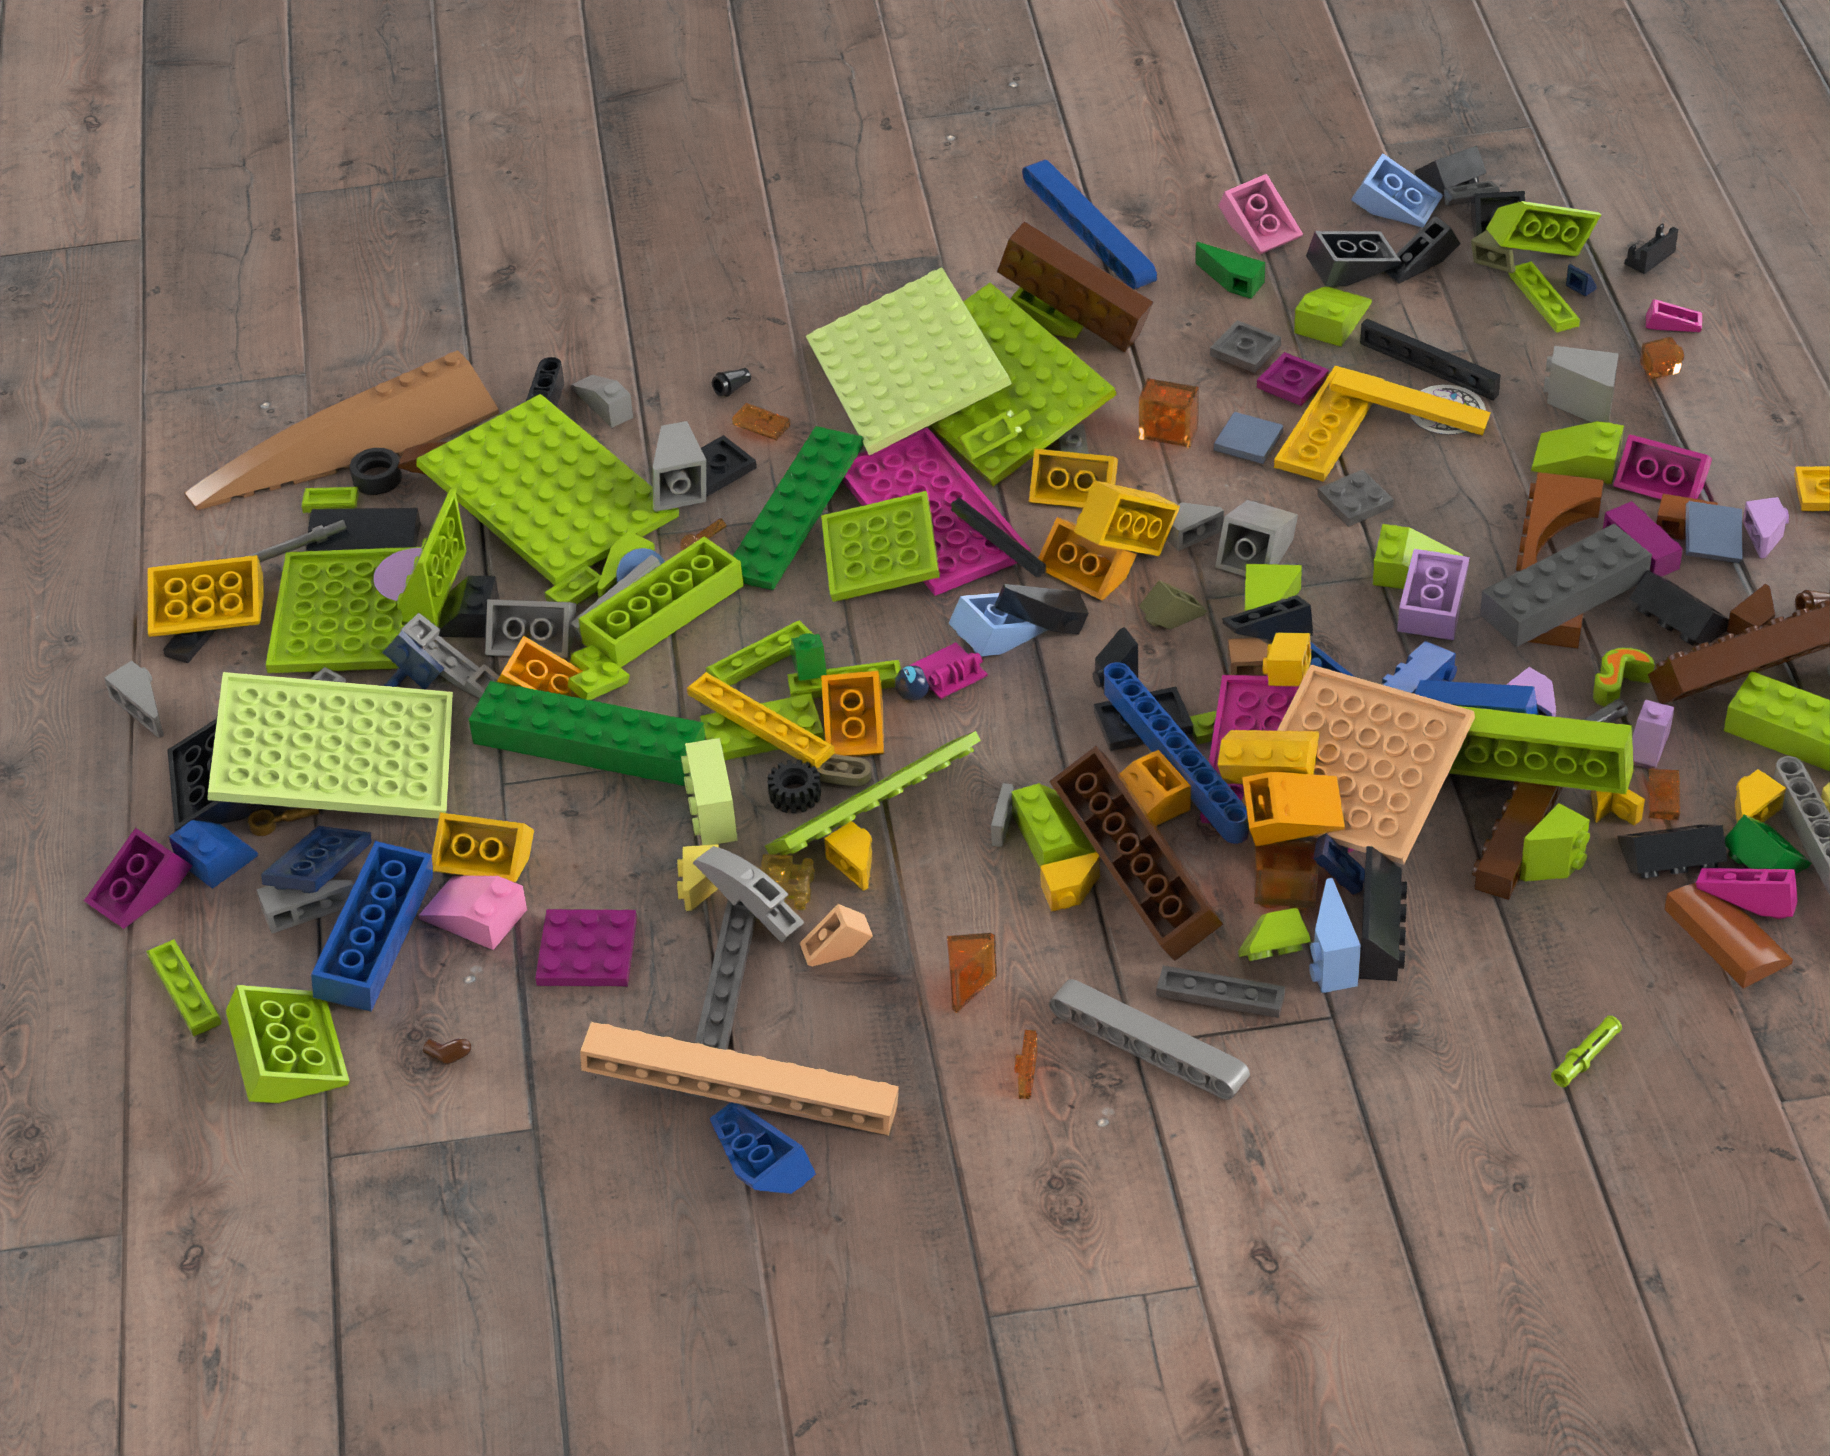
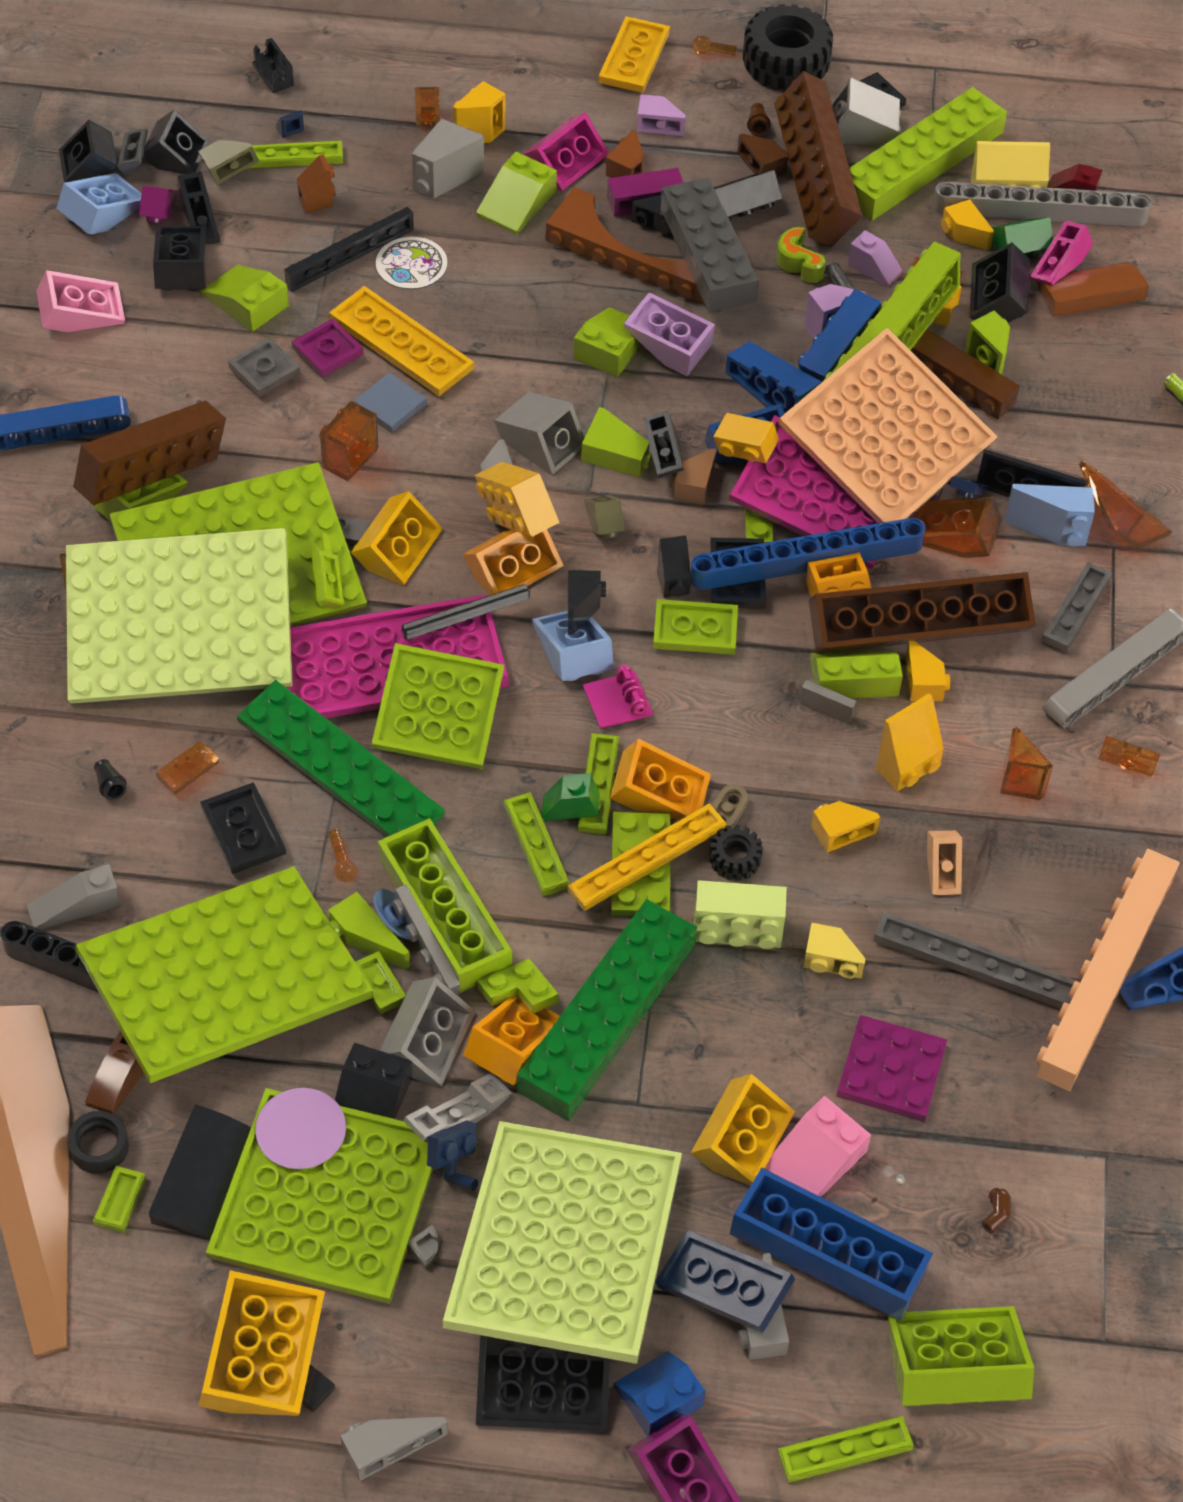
camera: 80 degrees left, 10 degrees up
(318, 534) = (198, 1211): flat silver bar -> none
(436, 565) = (328, 1088): lime slope -> none
(678, 468) = (263, 839): light grey slope -> none
(756, 890) = (878, 907): light grey slope -> none
(782, 869) = (856, 894): clear yellow plate -> none
(871, 796) = (780, 790): lime plate -> none
(911, 683) = (634, 726): dark blue piece -> none
(955, 870) = (910, 744): none -> yellow slope
(1059, 703) = (695, 627): none -> lime plate
(1231, 270) = (150, 345): green slope -> none
(1259, 752) = (861, 480): yellow slope -> none
(1275, 931) = (1040, 548): lime slope -> none
(1291, 806) = (925, 487): light orange slope -> none
(1355, 497) = (505, 354): flat silver plate -> none
(1379, 1009) = (1122, 513): none -> clear orange wedge
(1408, 221) = (157, 203): none -> magenta slope
(1410, 401) = (403, 277): yellow tile -> none
(1495, 314) = (315, 185): none -> dark orange slope
(1542, 227) = (231, 114): lime slope -> none
(1664, 391) = (482, 111): none -> yellow slope
(1672, 317) = (365, 89): dark pink slope -> none
(1713, 532) = (660, 145): sand blue tile -> none

